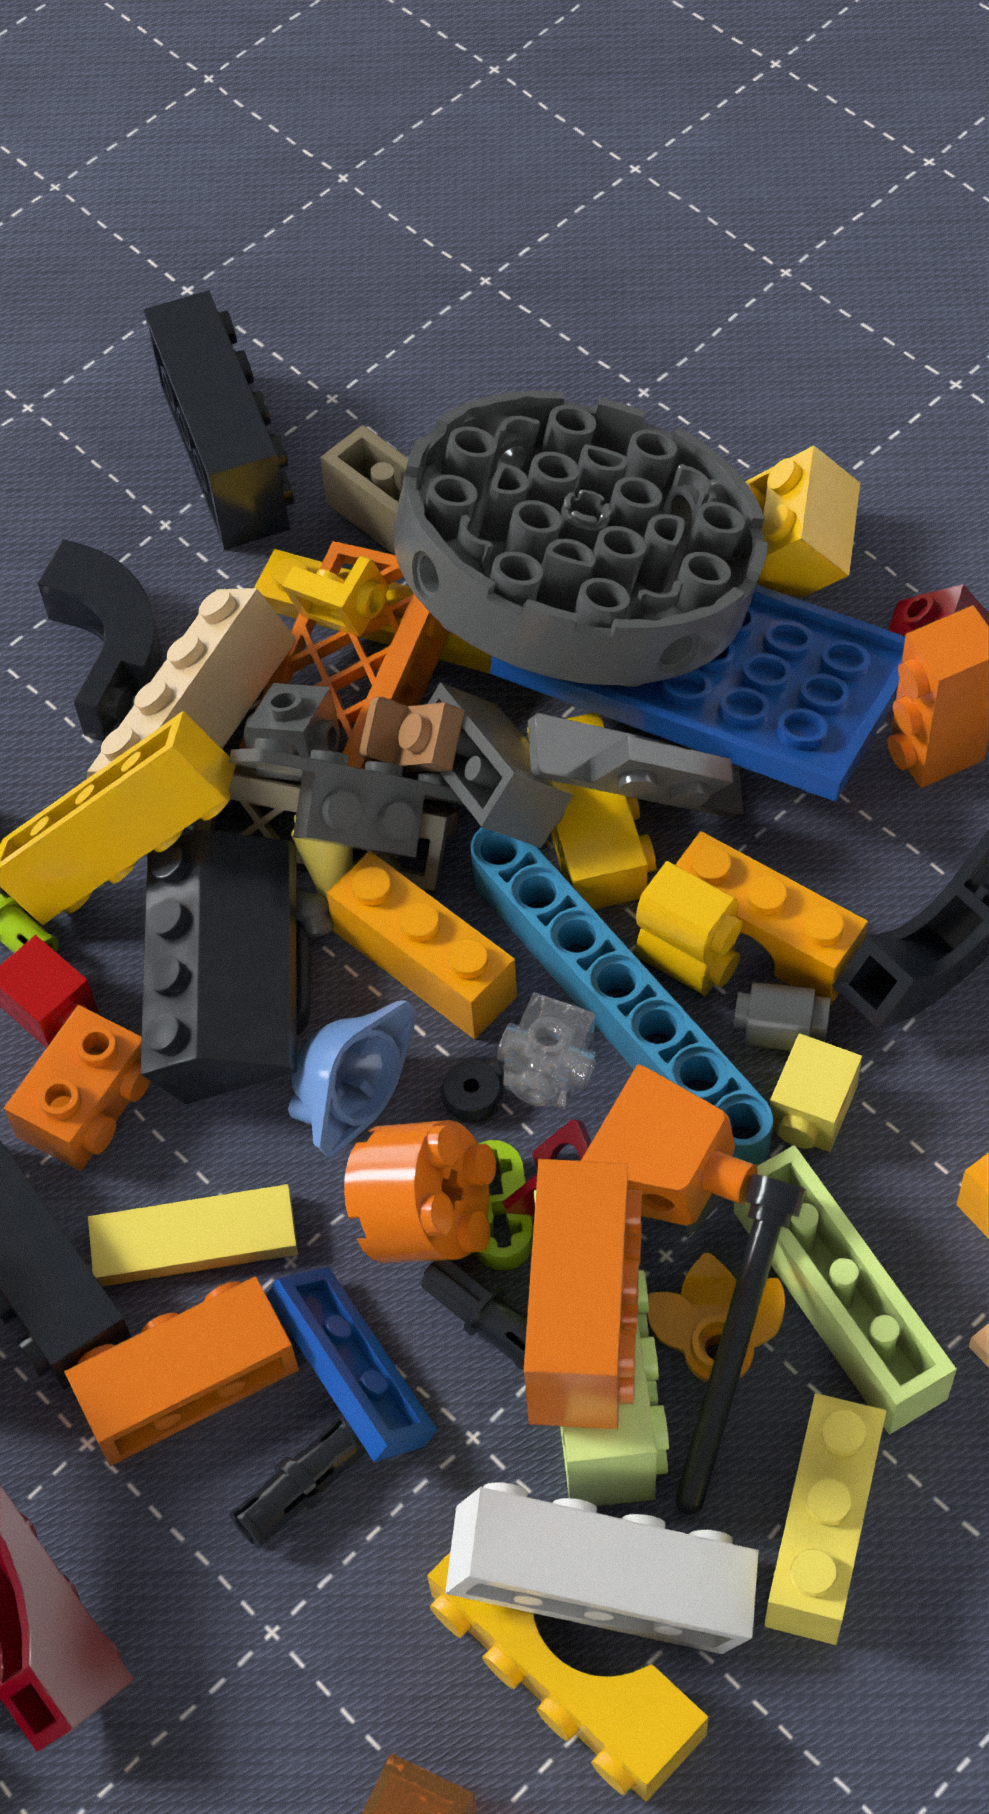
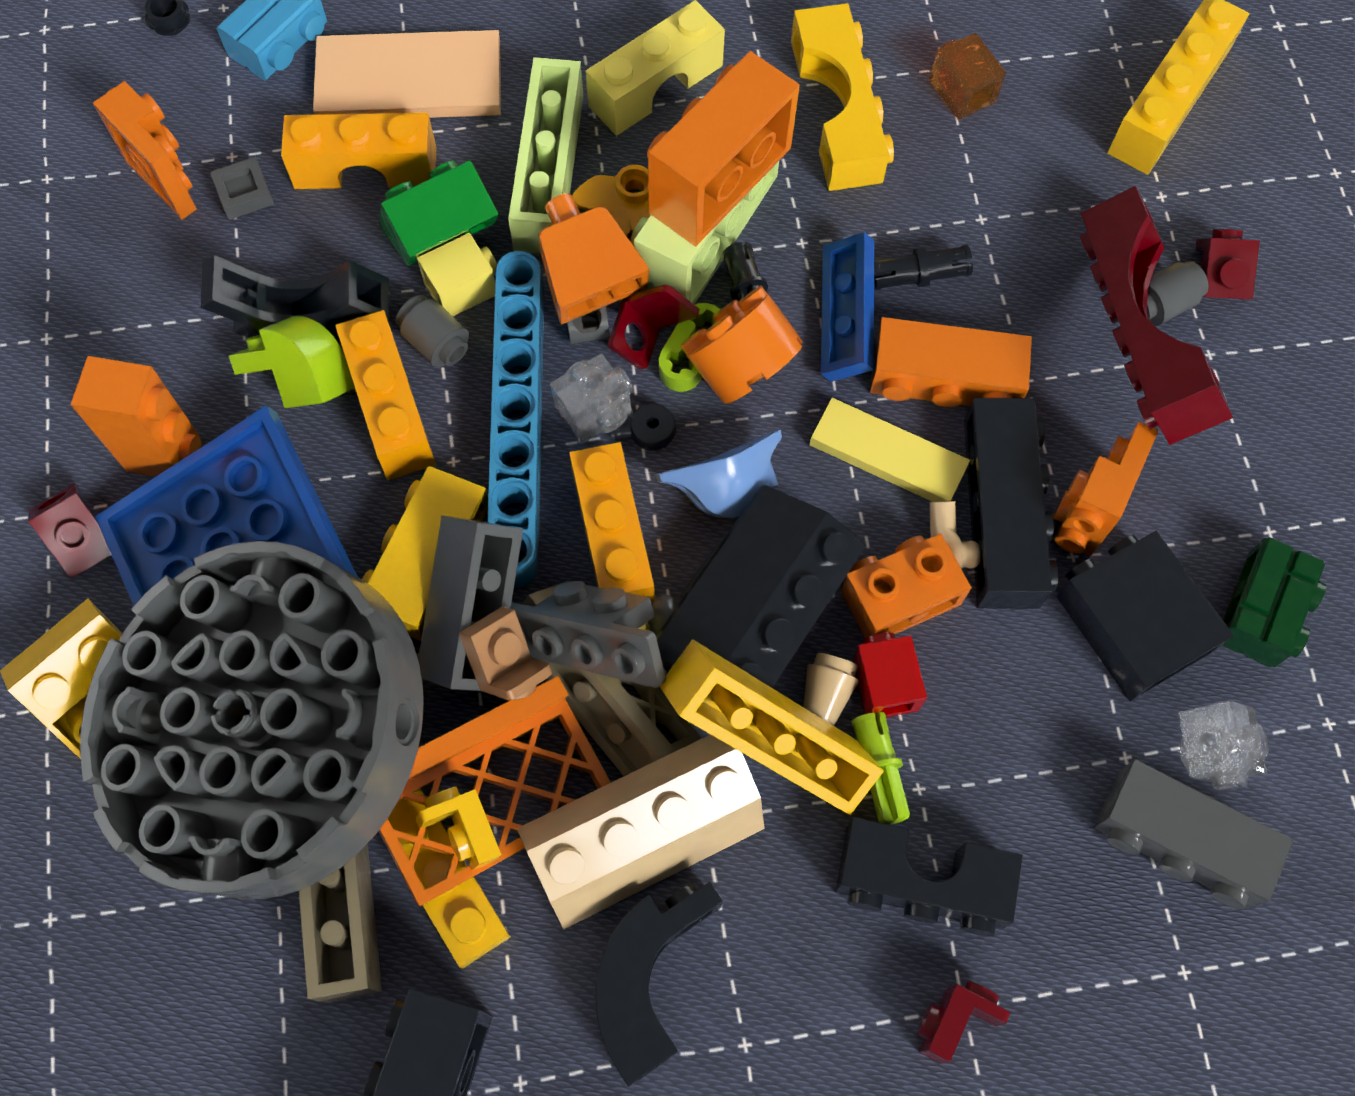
camera: 150 degrees left, 10 degrees up
(68, 1174) = (944, 521): none -> tan arm
(100, 948) = (829, 686): none -> tan cone
(297, 716) = (568, 743): dark grey brick -> none
(602, 1569) = (833, 102): white brick -> none
(633, 766) = (379, 516): dark grey bracket -> none
(688, 929) = (443, 402): yellow brick -> none
(771, 1208) = (558, 178): black piece -> none
(879, 875) = (303, 360): none -> lime brick
(893, 1124) = (436, 210): none -> green slope

